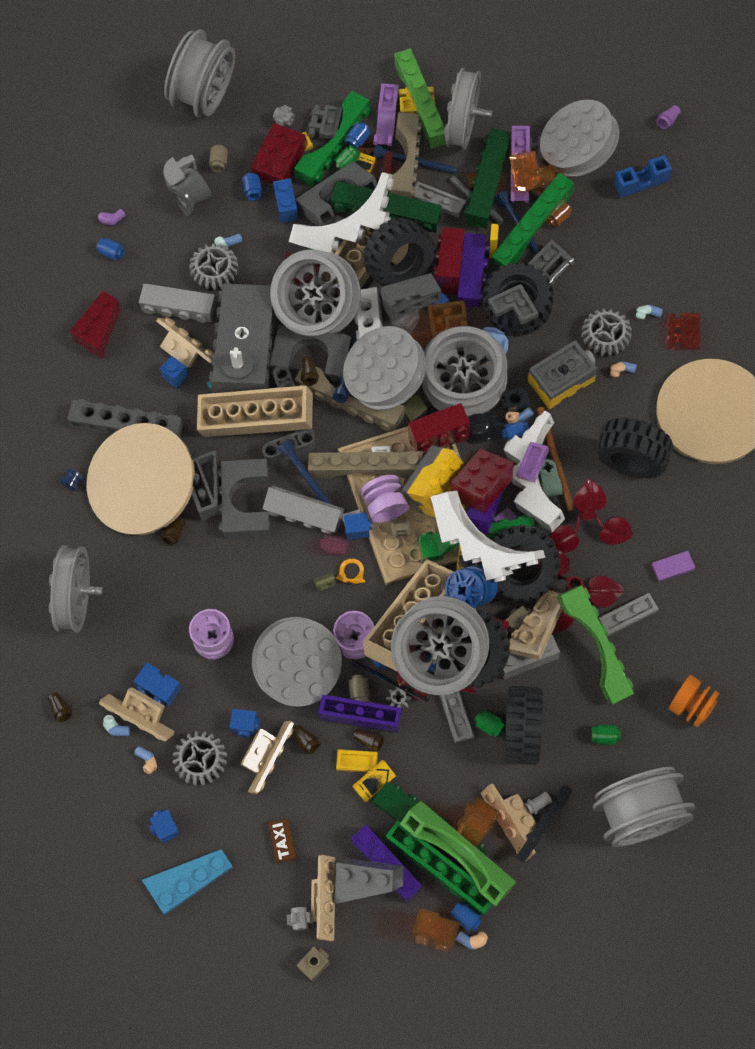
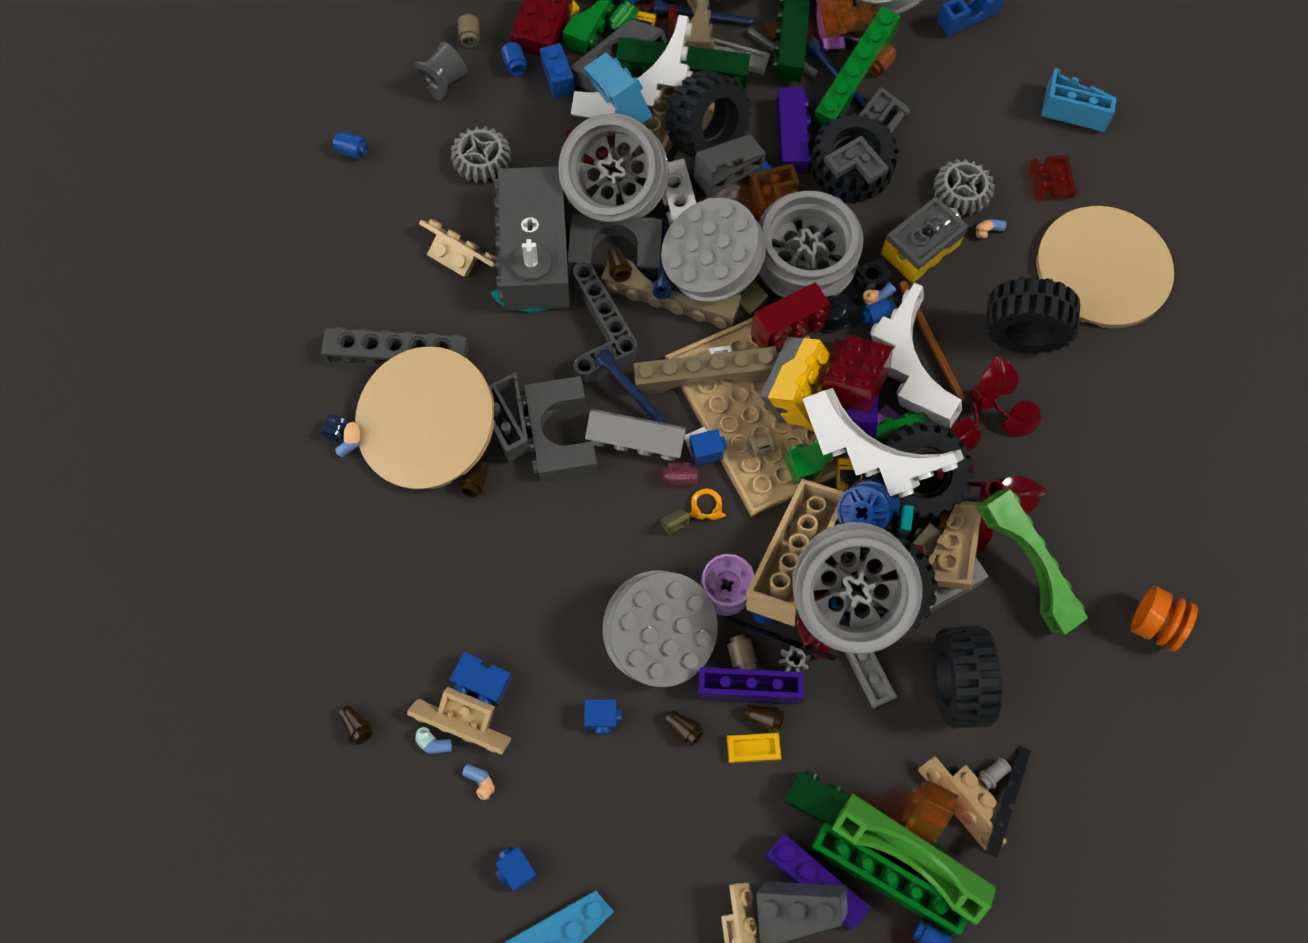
camera: 15 degrees left, 0 degrees up
(70, 588) = (352, 568): light grey wheel -> none
(82, 489) = (351, 439): none -> arm
(96, 324) = (344, 235): dark red wedge -> none
(111, 219) = (346, 111): medium lavender arm -> none
(173, 372) = (449, 283): blue brick -> none
(175, 171) = (422, 47): light grey brick -> none
(177, 303) = (441, 200): light grey brick -> none
(193, 761) = (560, 763): light grey gear -> none
(211, 624) = (537, 593): lavender wheel -> none
(229, 241) = (495, 123): medium blue arm -> none
(255, 411) = (558, 319): tan brick -> none
(262, 754) = (633, 754): tan bracket -> none
(282, 841) = (674, 867): reddish brown tile -> none
(326, 228) = (618, 87): none -> dark azure wedge
(373, 780) = (781, 771): yellow tile -> none
(385, 498) = (738, 409): lavender wheel -> none
(449, 260) = (767, 117): dark red brick -> none
(489, 723) = (914, 677): green brick -> none
(493, 239) = (814, 92): yellow tile -> none
(496, 602) = (903, 522): none -> teal tile
(532, 462) = (912, 345): medium lavender tile -> none
(550, 482) = (932, 362): sand green piece -> none
(605, 734) = (1061, 674): green brick -> none
(628, 614) = (1061, 516): light grey tile -> none
(643, 806) = (1143, 767): light grey wheel -> none
(648, 309) = (1007, 157): arm -> none
(673, 566) = (1097, 454): medium lavender tile -> none
(716, 269) = (1077, 104): none -> dark azure wedge

